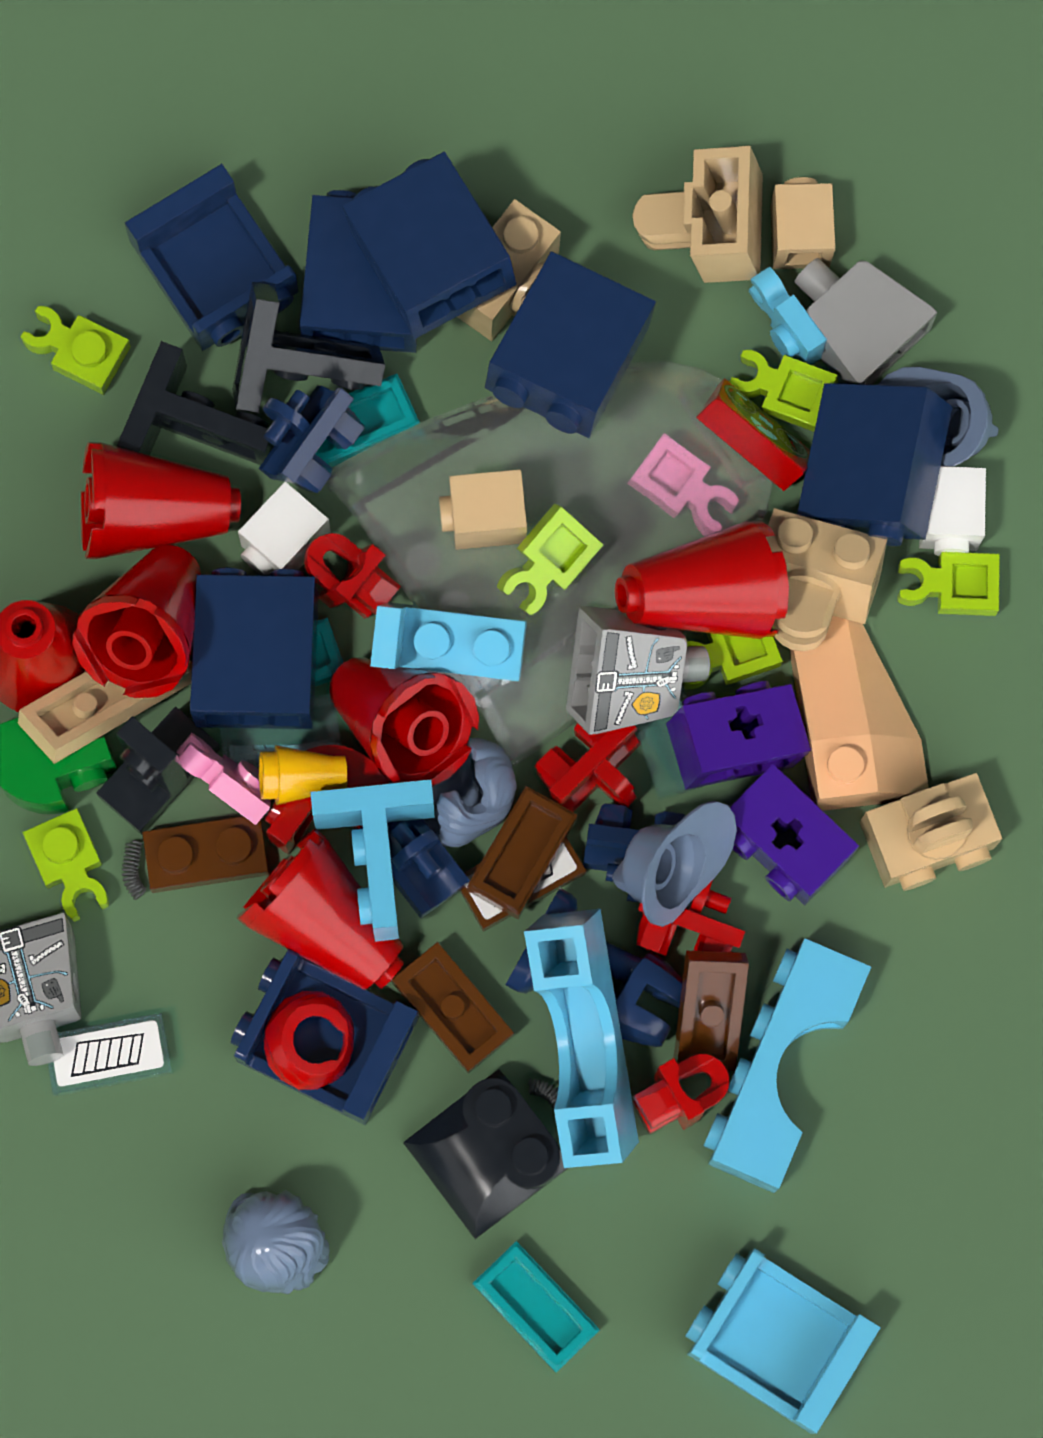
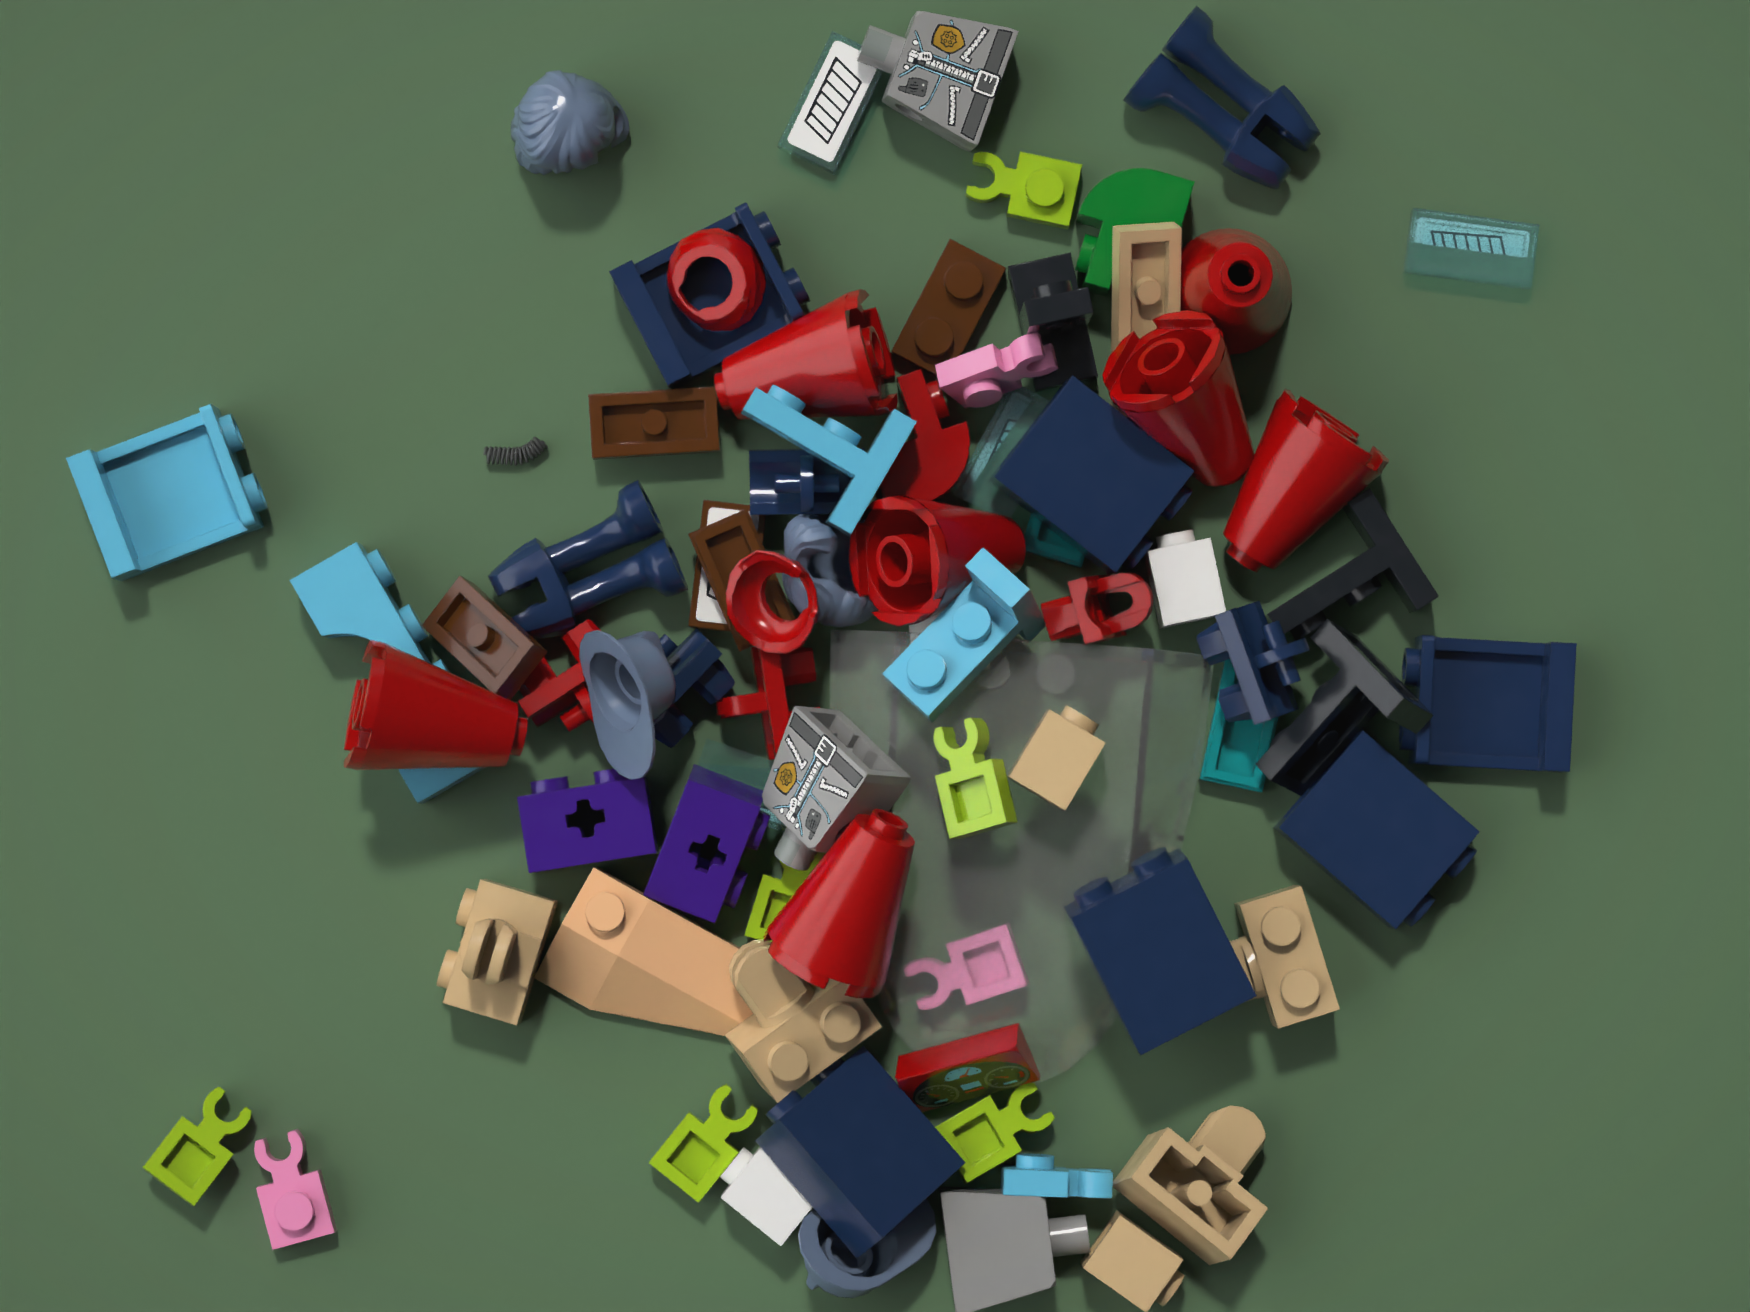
camera: 125 degrees right, 10 degrees up
(82, 352) = (1489, 528): lime plate -> none
(134, 884) = (979, 235): dark grey leg -> none
(295, 773) = (945, 430): yellow cone -> none
(429, 244) = (1347, 893): dark blue brick -> none
(487, 1153) = (509, 363): black slope -> none
(535, 1307) = (351, 309): teal tile -> none
(546, 810) = (751, 612): none -> red piece
(594, 1090) = (590, 534): medium azure arch -> none
(667, 1100) = (432, 539): red hips -> none
(807, 999) = (426, 718): none -> red cone

